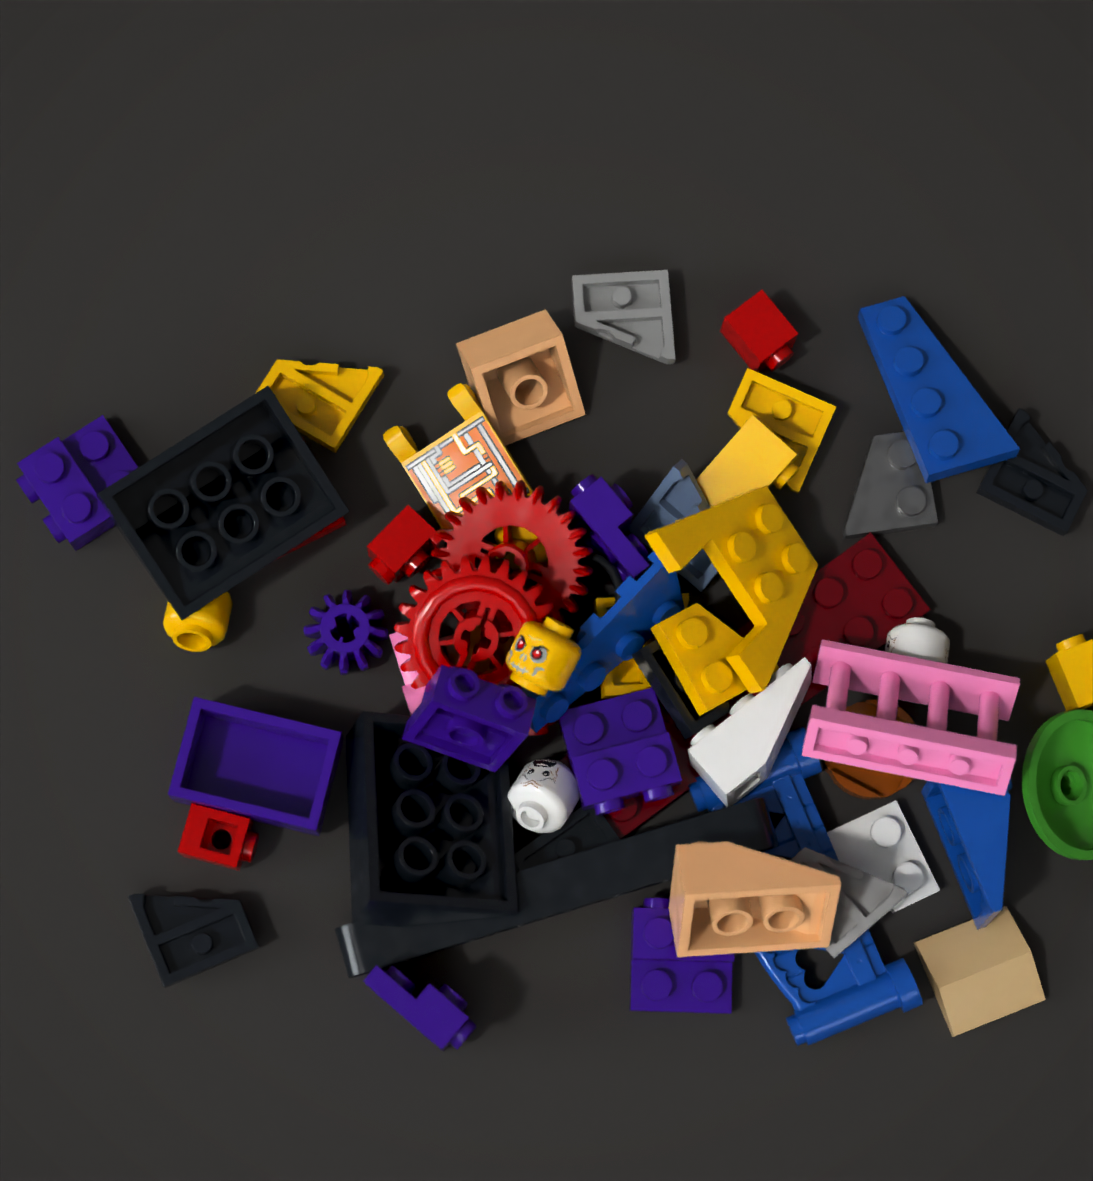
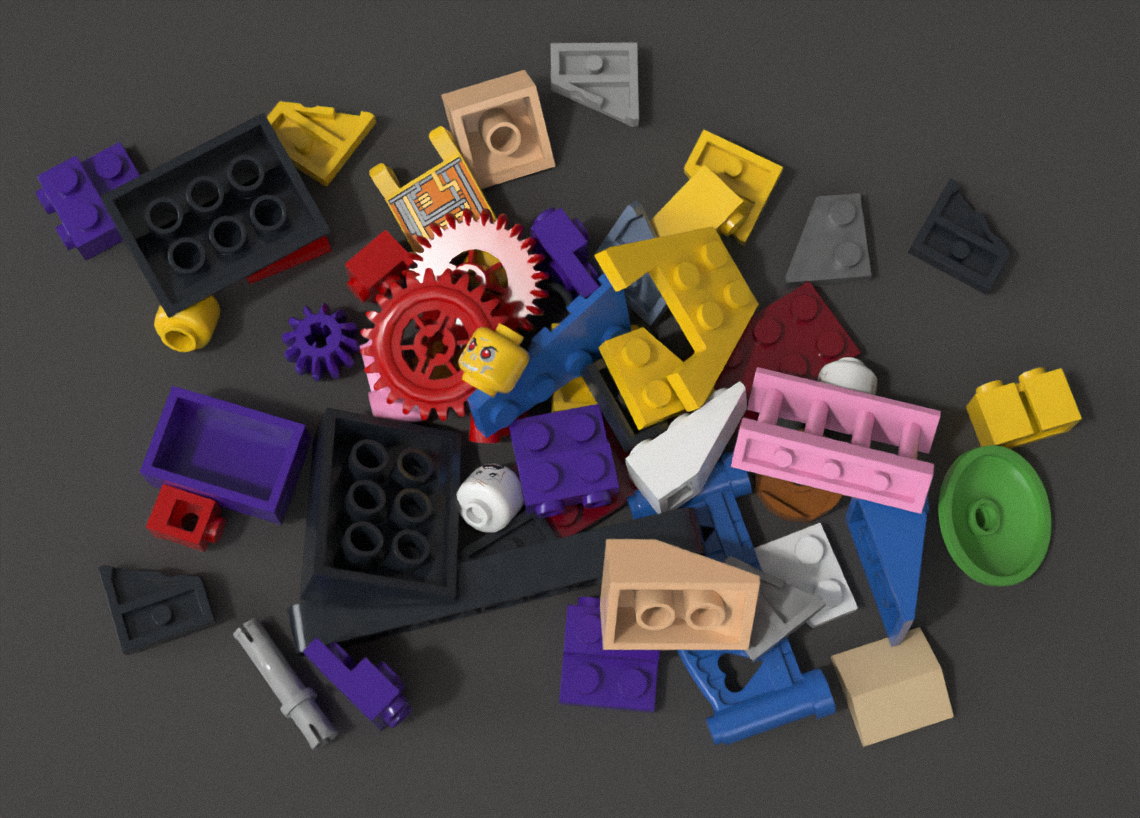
camera: 10 degrees right, 5 degrees down
(339, 1008) = (296, 698): none -> light grey pin
(470, 718) = (423, 416): dark purple plate -> none
(760, 333) = (717, 101): red brick -> none
(935, 402) = (872, 167): blue wing -> none

